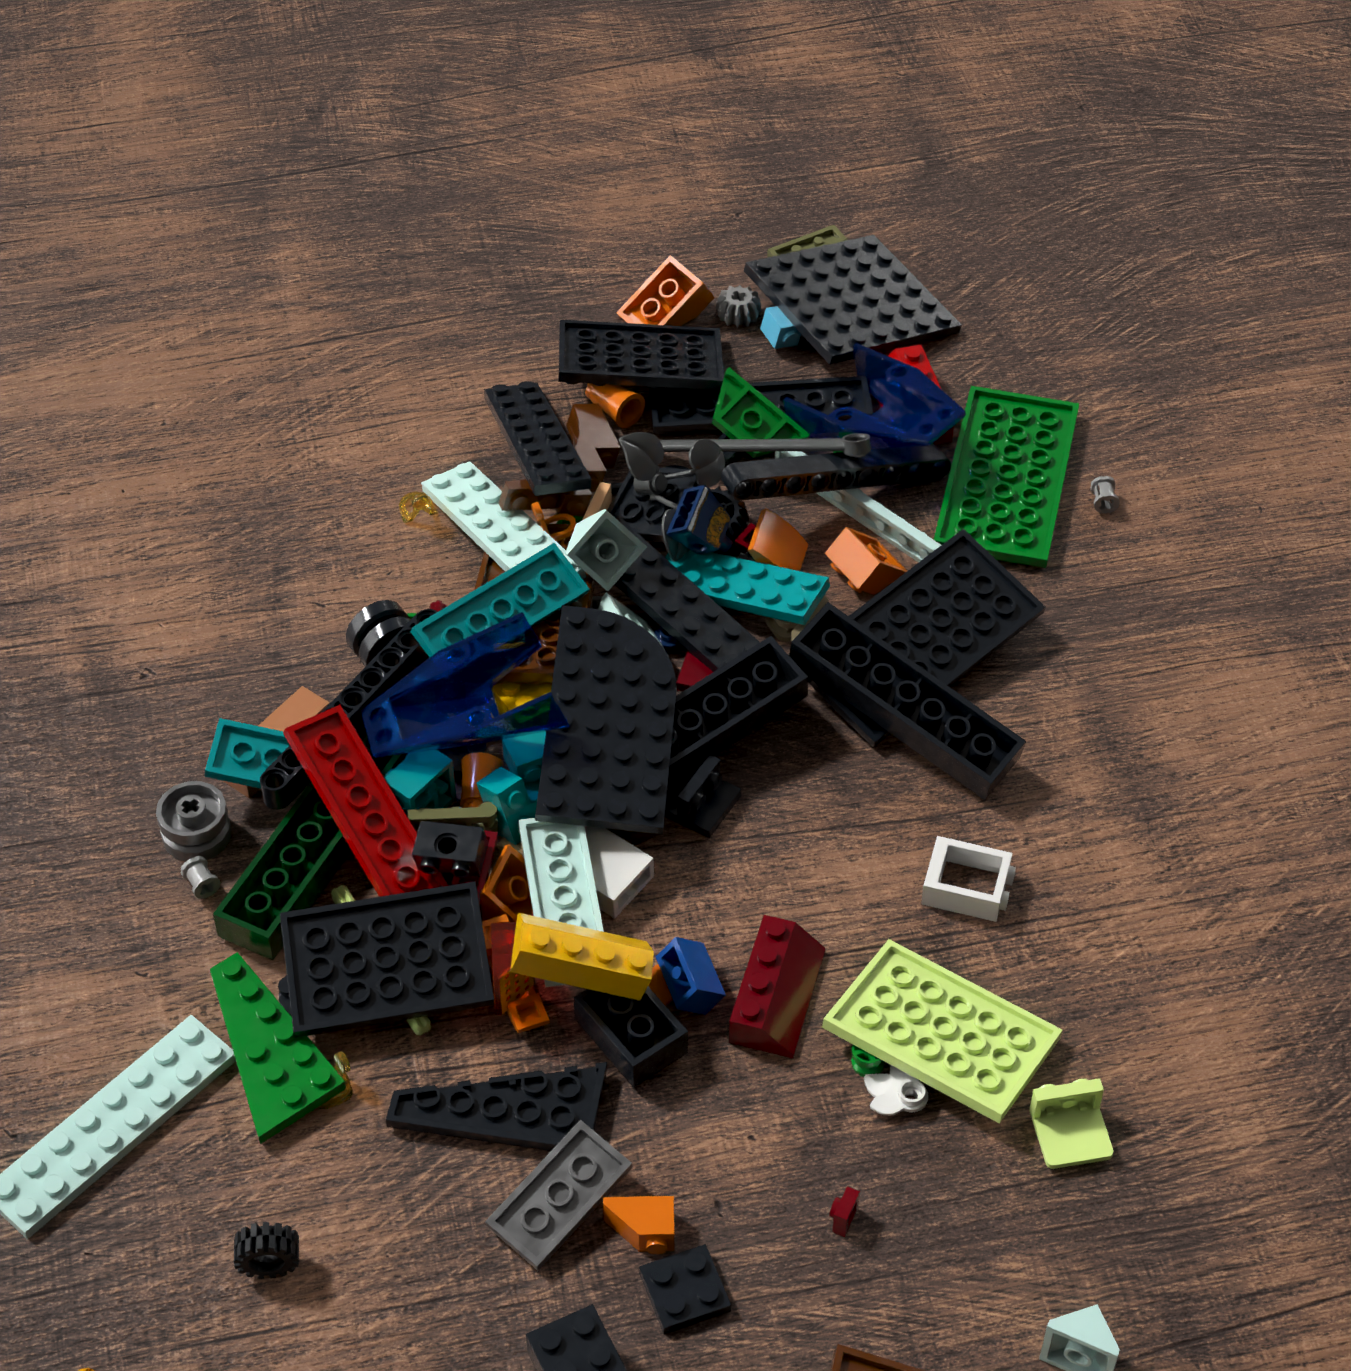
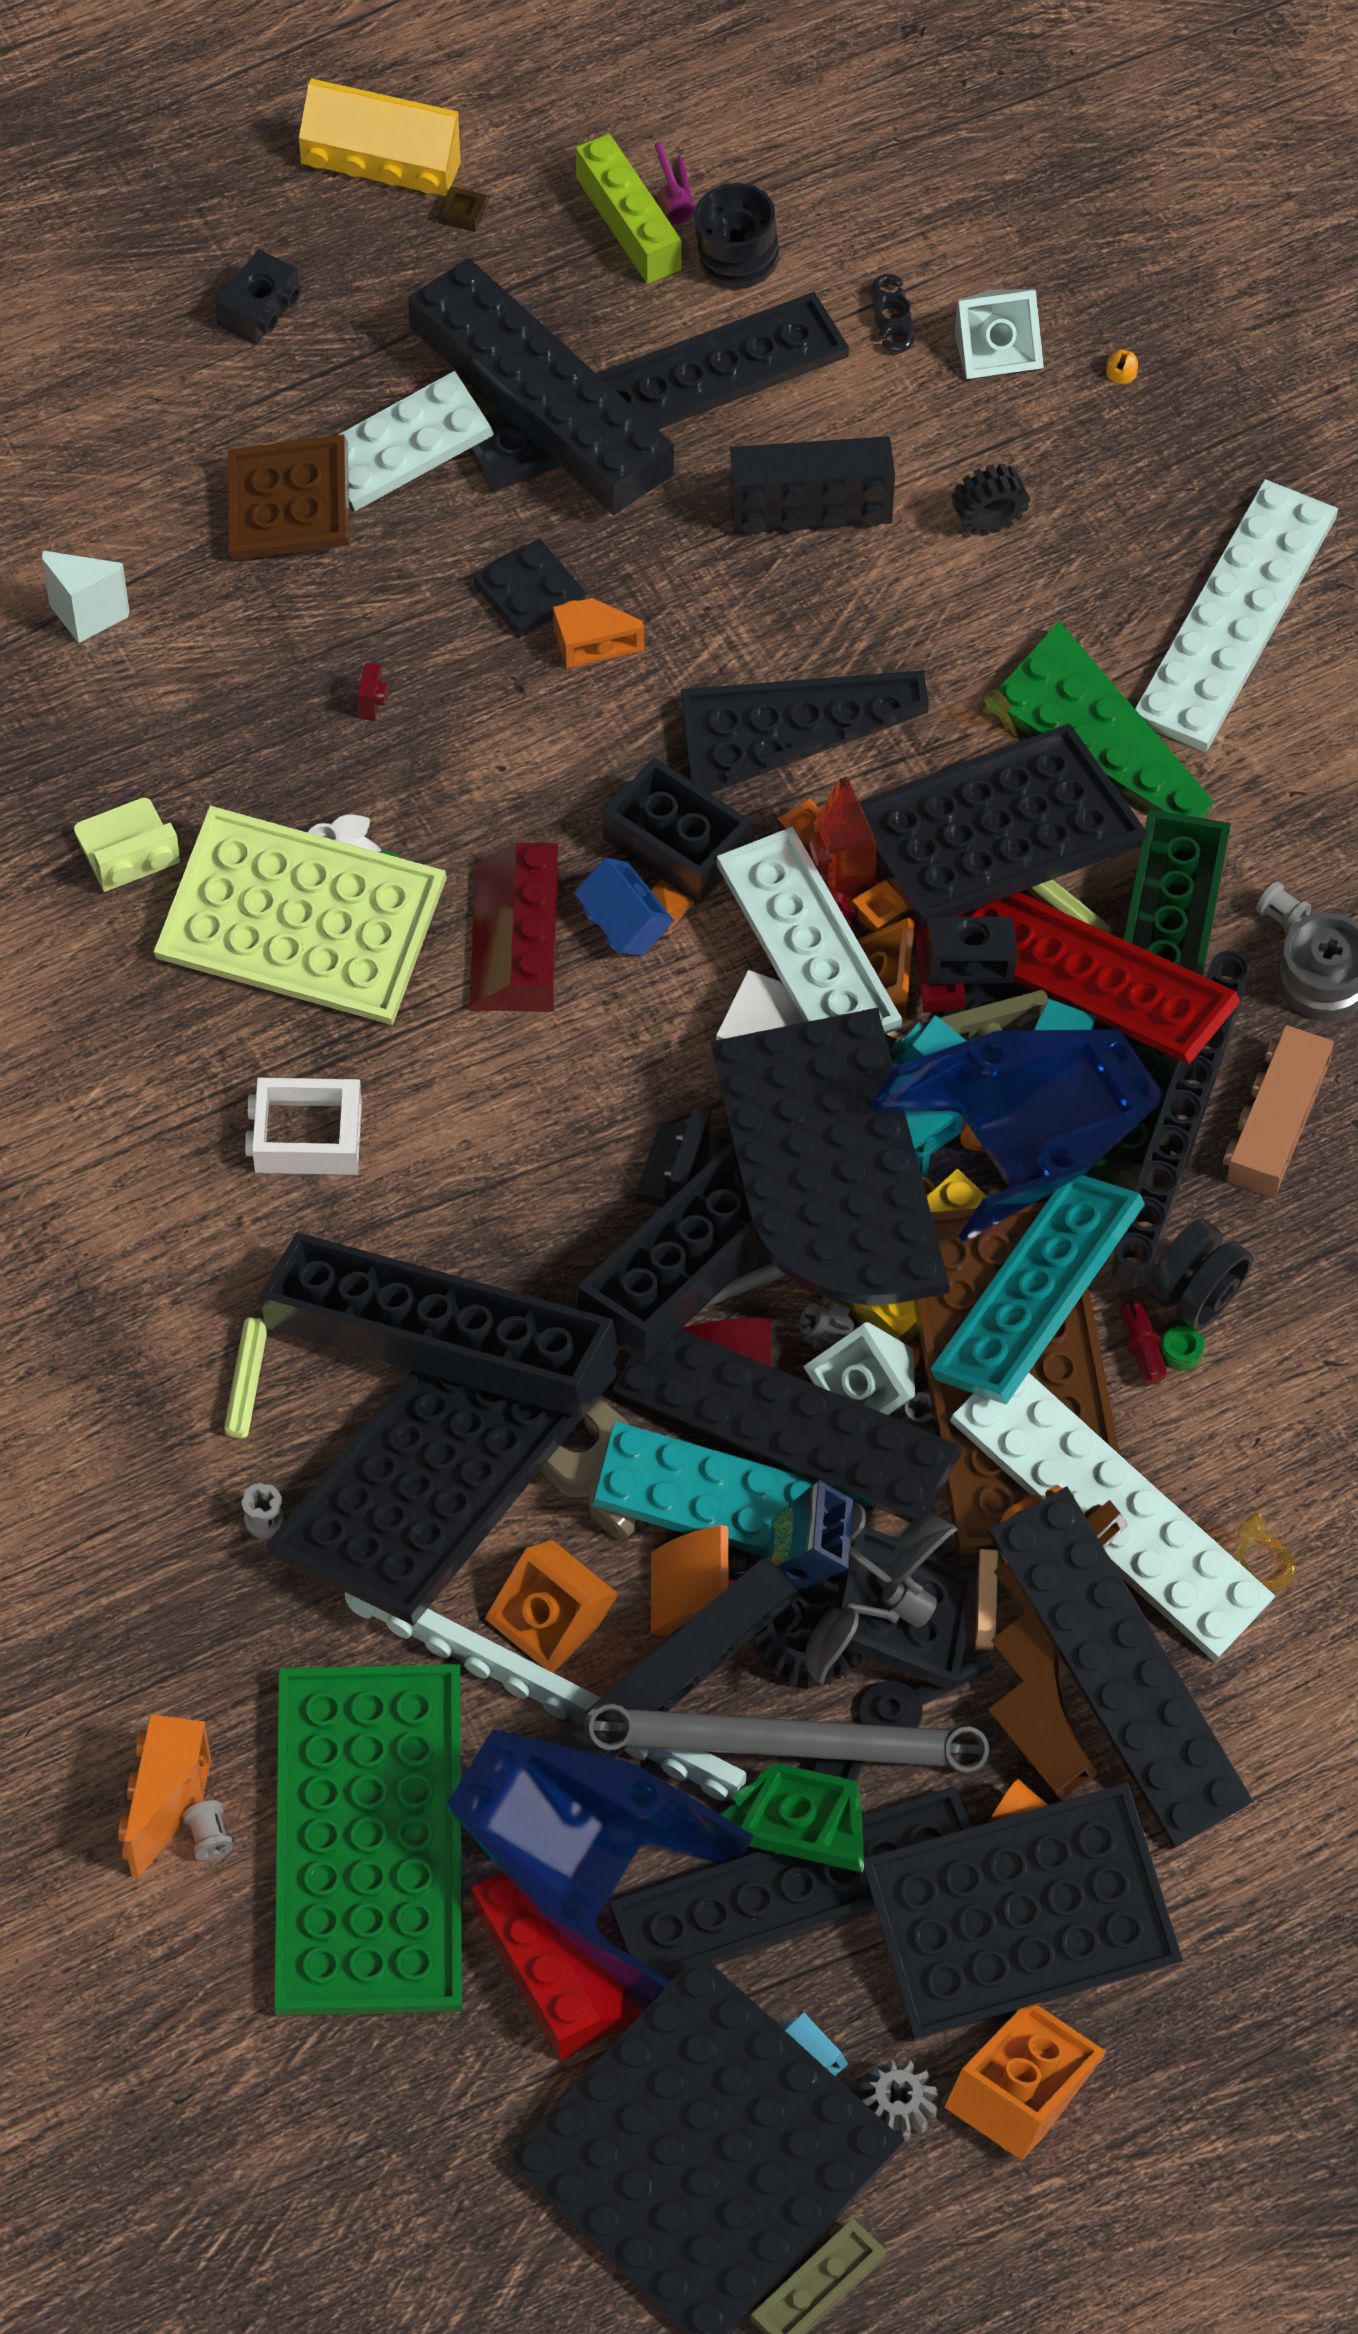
camera: 165 degrees right, 10 degrees up
(243, 752) = (1285, 1040): teal plate -> none
(414, 1296) = (811, 485): none -> black brick
(559, 1195) = (695, 631): flat silver plate -> none
(581, 957) = (751, 829): yellow slope -> none
(603, 548) = (936, 1418): light aqua slope -> none
(1039, 734) = (245, 1378): none -> yellowish green axle
(1047, 643) = (260, 1512): none -> light grey bush
(1128, 504) = (168, 1782): none -> orange slope

